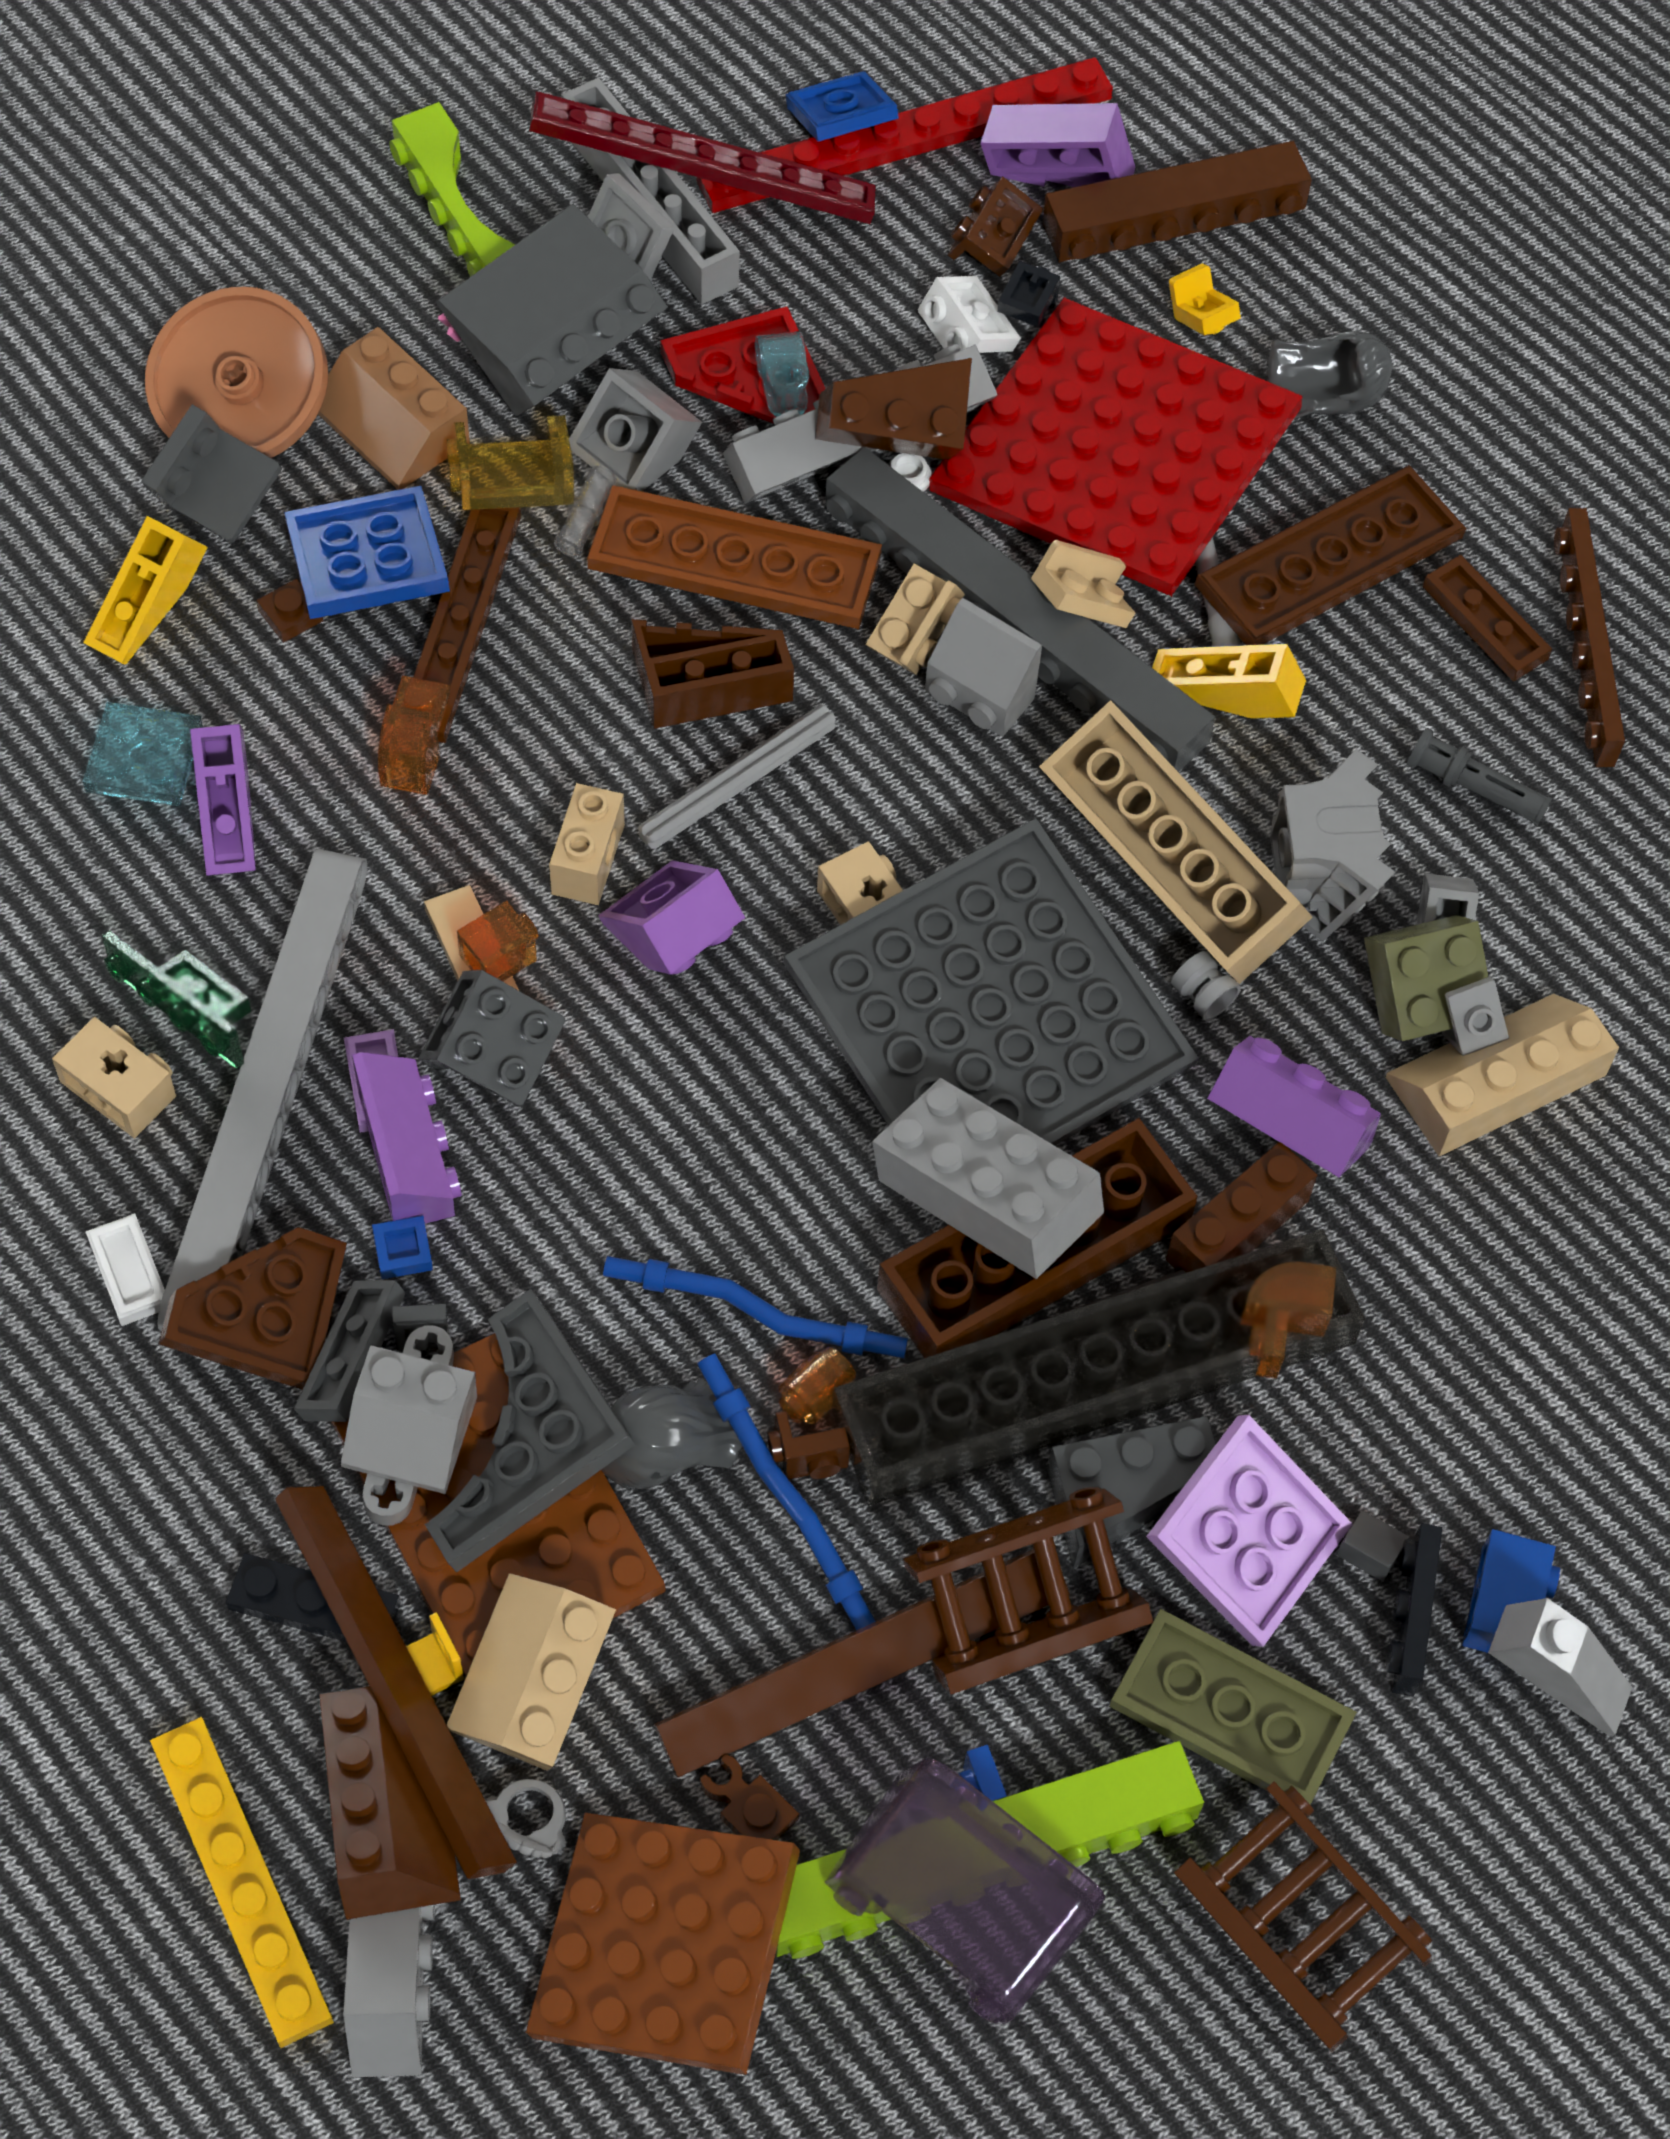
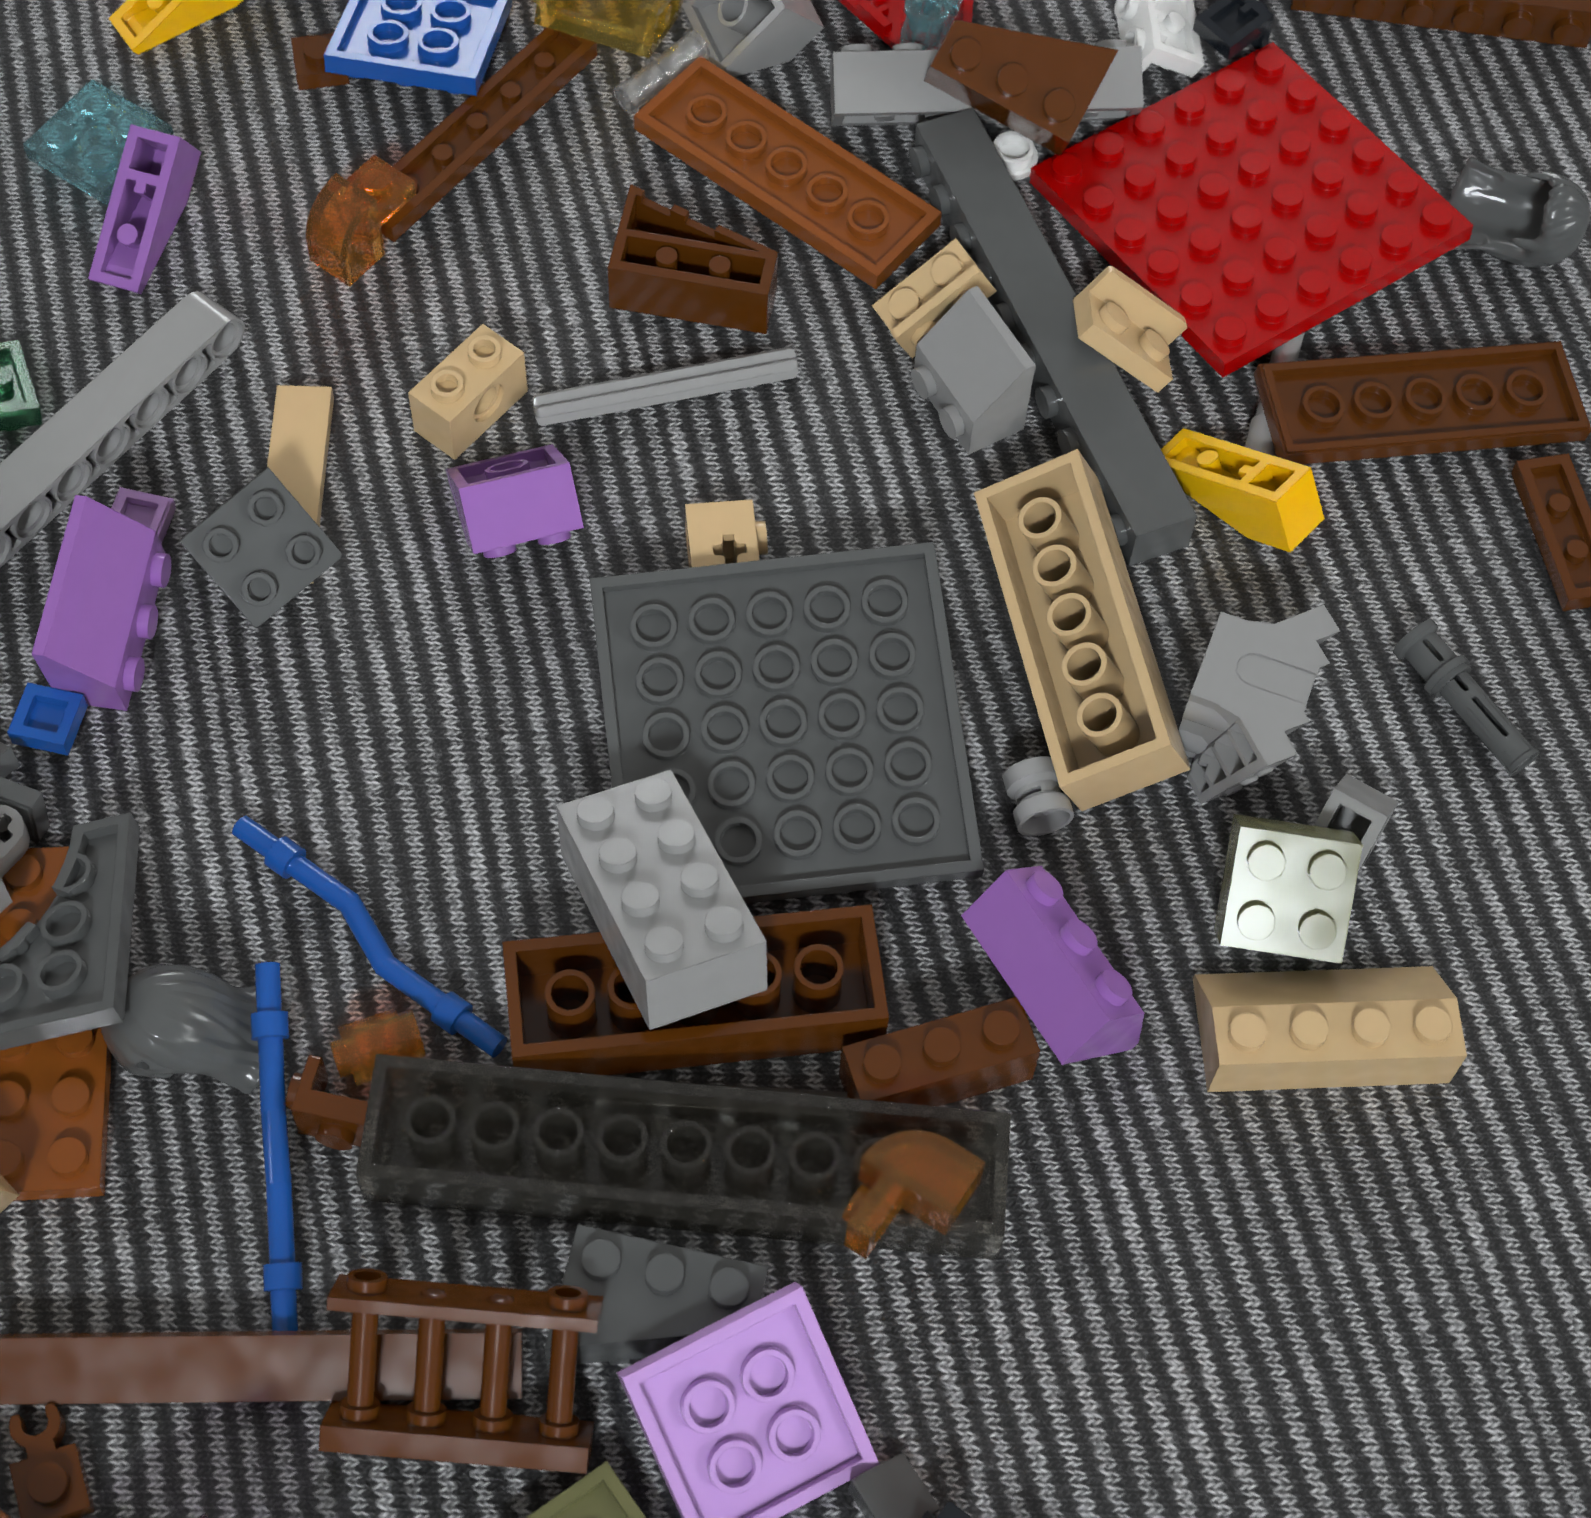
camera: 25 degrees right, 0 degrees up
(498, 942) = (315, 453): clear orange brick -> none
(1199, 304) = (1415, 95): yellow bracket -> none
(1475, 1017) = (1316, 951): light grey bracket -> none

